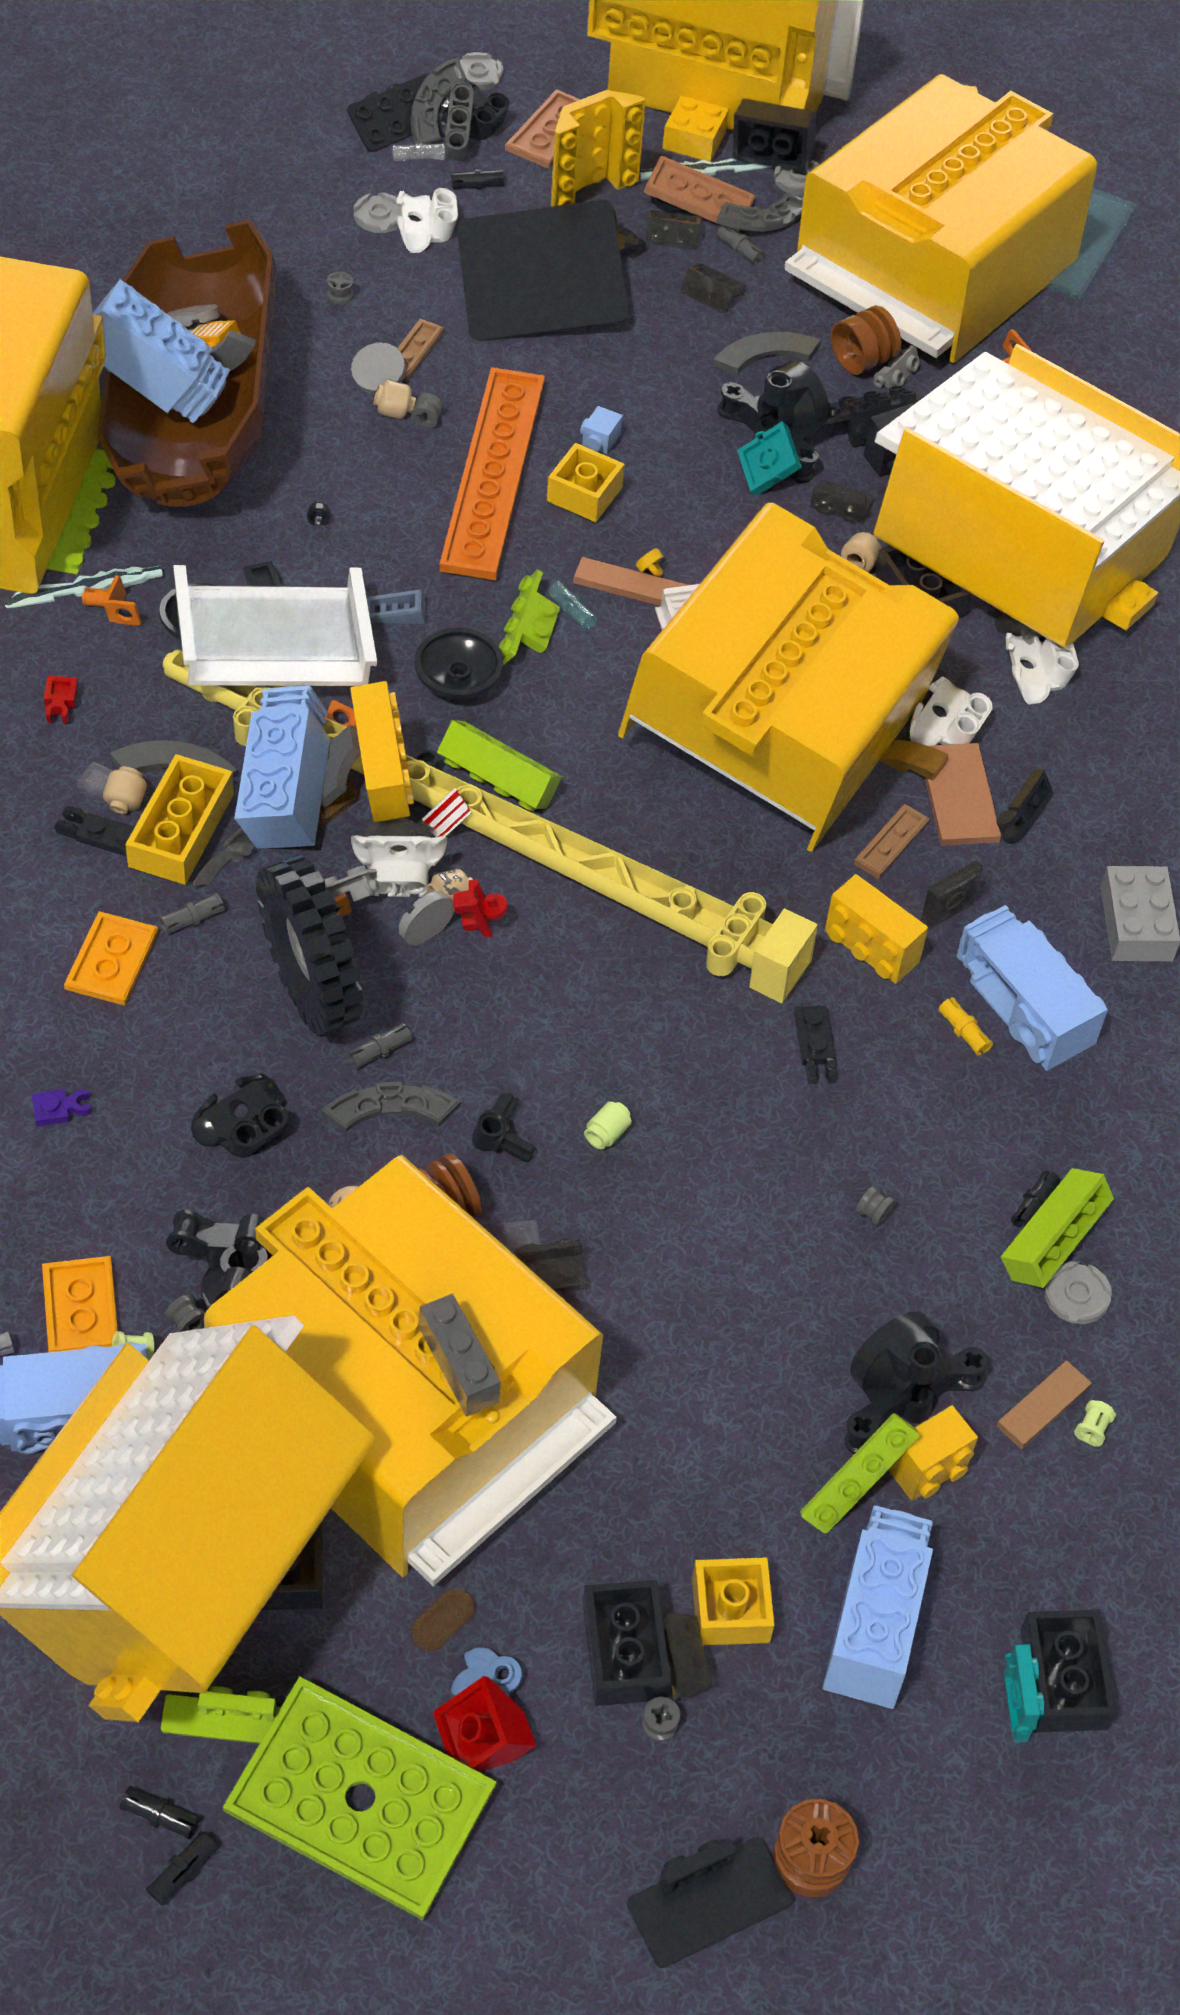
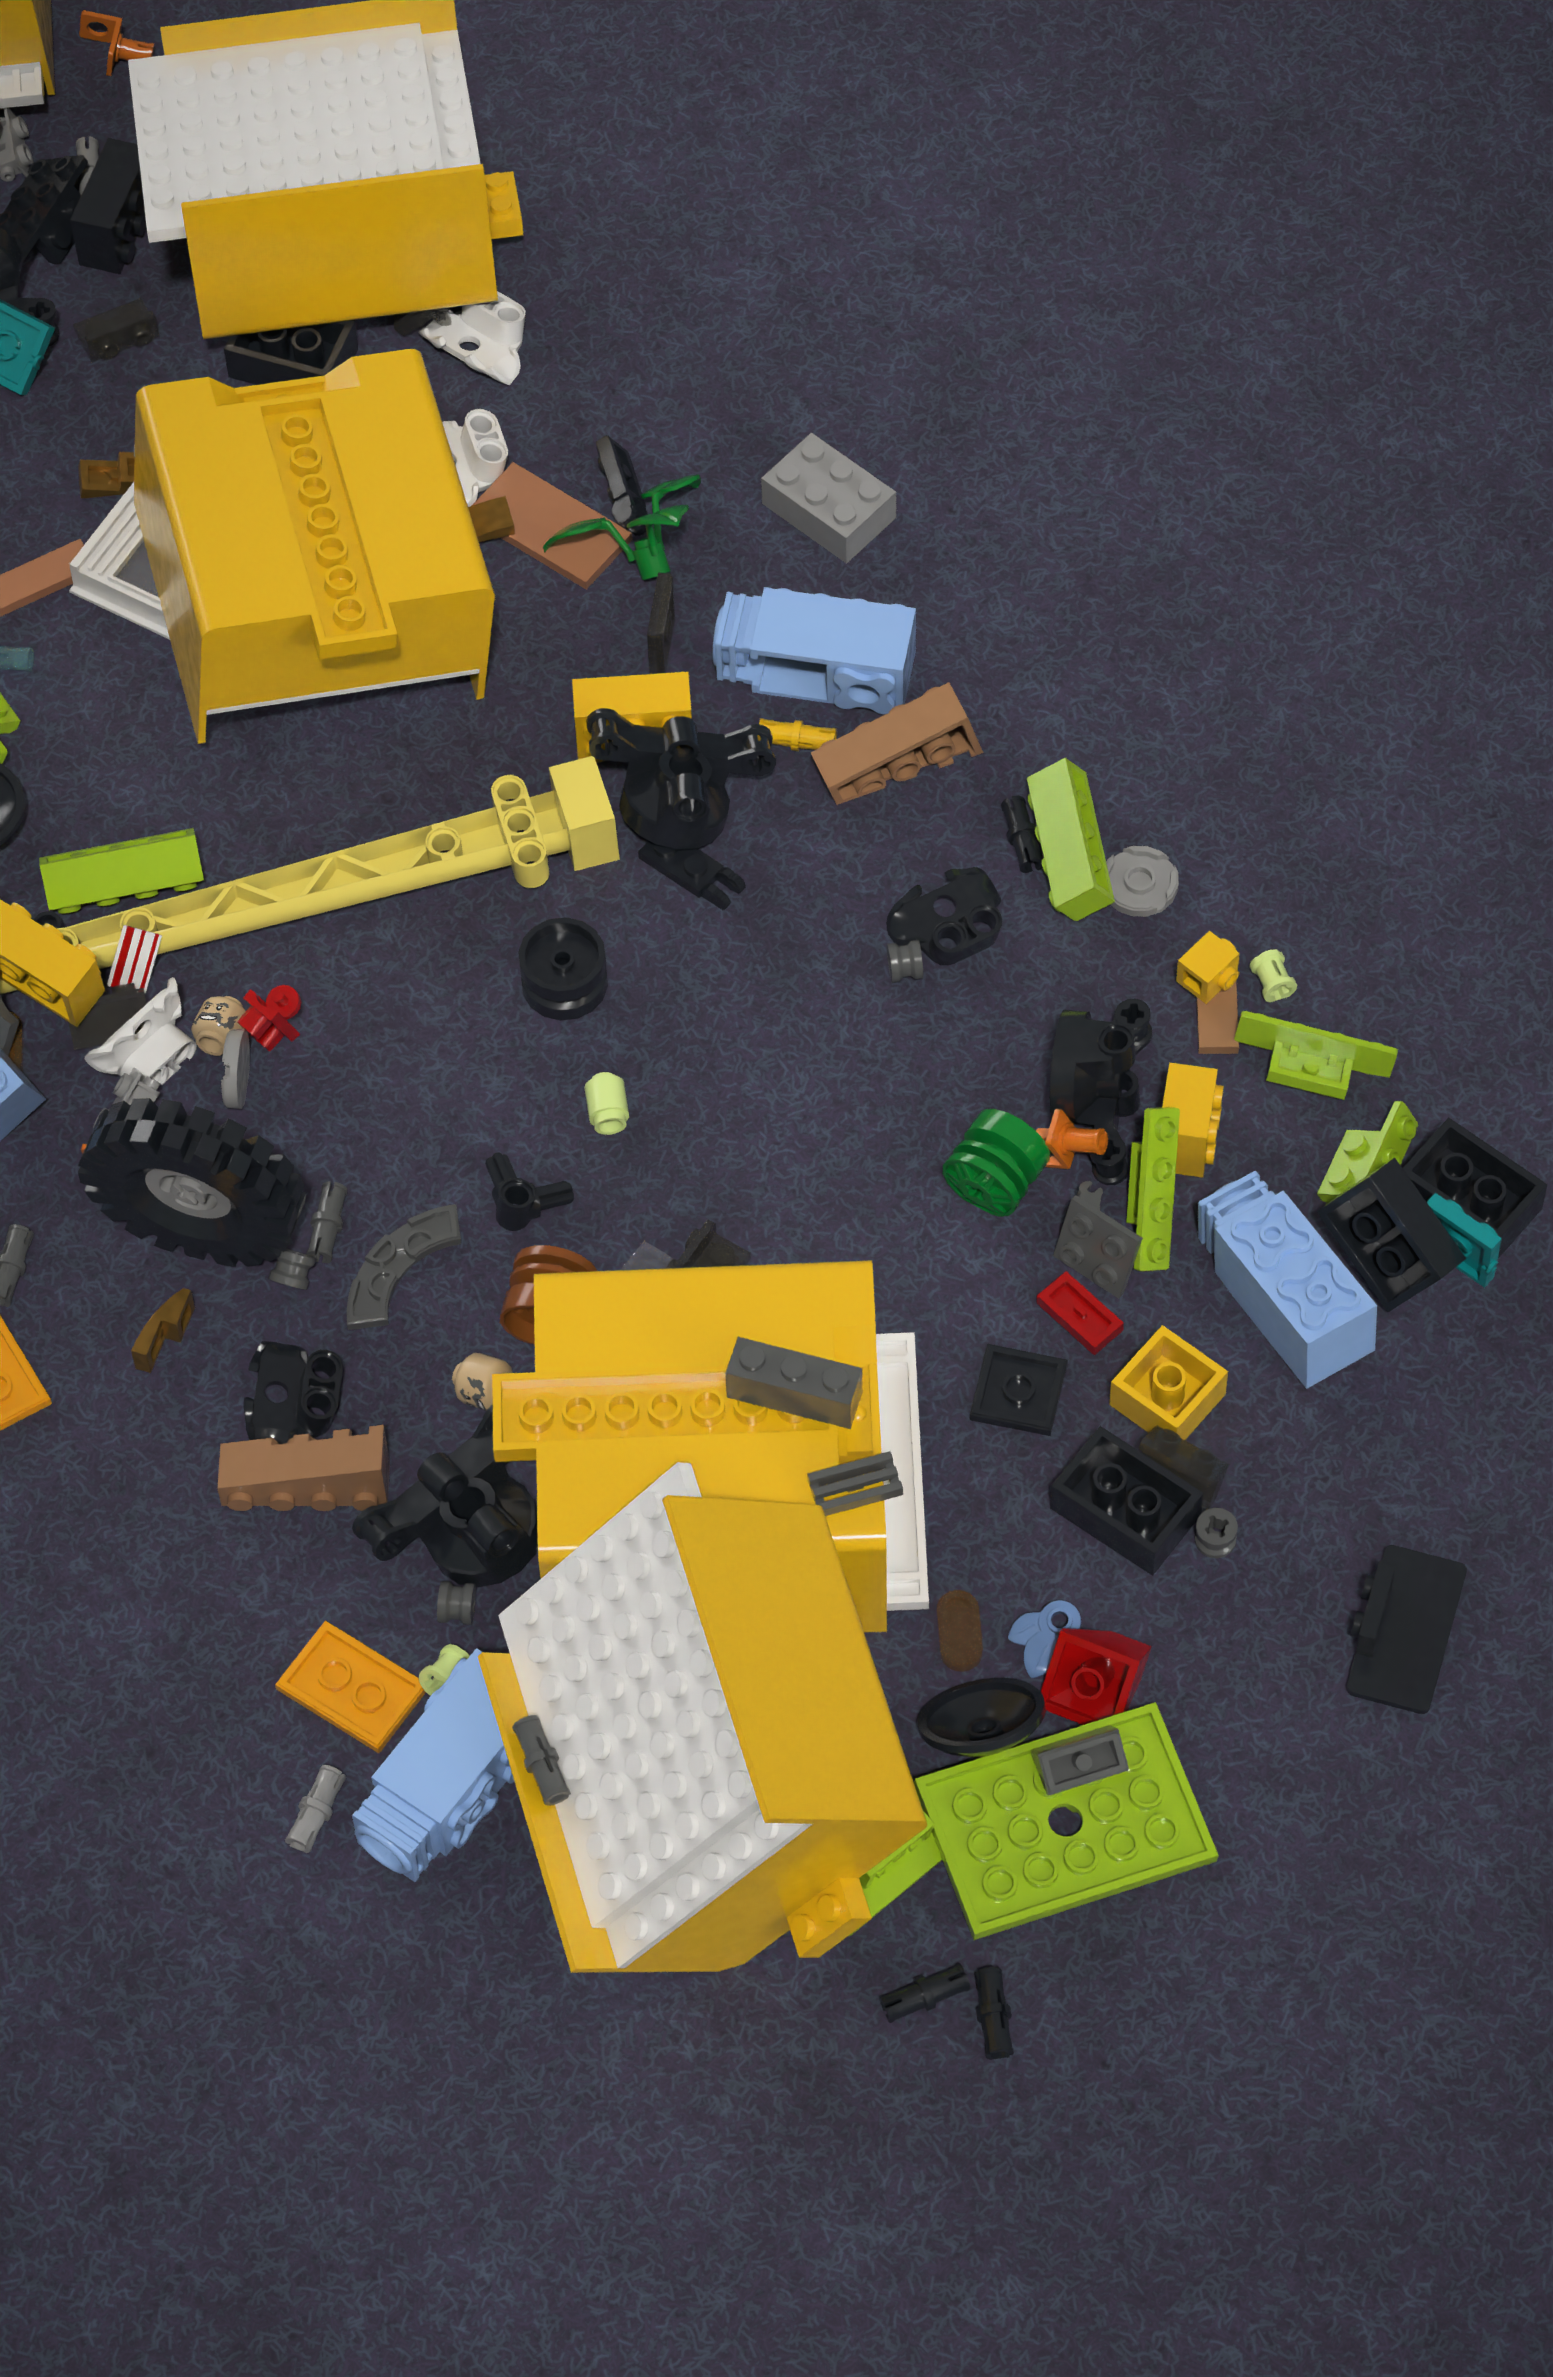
camera: 40 degrees left, 5 degrees up
(54, 1106) = (110, 1548): dark purple plate -> none
(93, 1415) = (541, 1760): none -> dark grey pin
(197, 1166) = (306, 1472): none -> medium nougat wedge
(232, 1017) = (167, 1322): none -> pearl gold slope
(327, 1051) = (292, 1269): none -> dark grey wheel
(383, 1681) = (982, 1717): none -> black dish
(407, 1767) = (1080, 1759): none -> dark grey slope
(432, 1438) = (818, 1480): none -> dark grey tile
(648, 1515) = (1018, 1389): none -> black tile
(650, 562) = (14, 548): yellow tile -> none
(670, 1029) = (563, 968): none -> black wheel
(737, 1506) = (1080, 1313): none -> red plate
(789, 1470) = (1097, 1243): none -> dark grey plate
(793, 1366) = (996, 1162): none -> green wheel
(818, 1867) = (1440, 1526): dark orange wheel -> none
(843, 1394) = (1066, 1139): none -> orange bracket
(861, 981) = (677, 774): none -> black piece
(862, 550) = (199, 360): tan head -> none
(891, 841) = (542, 624): medium nougat tile -> none
(963, 1206) = (974, 901): none -> black piece
(974, 1644) = (1391, 1235): none -> black brick
(996, 852) = (650, 550): none -> green plant
(1011, 1593) = (1366, 1151): none -> lime bracket
(1016, 1081) = (897, 745): none -> medium nougat wedge
(1055, 1378) = (1208, 967): none -> yellow brick
(1060, 1493) = (1311, 1056): none -> lime bracket

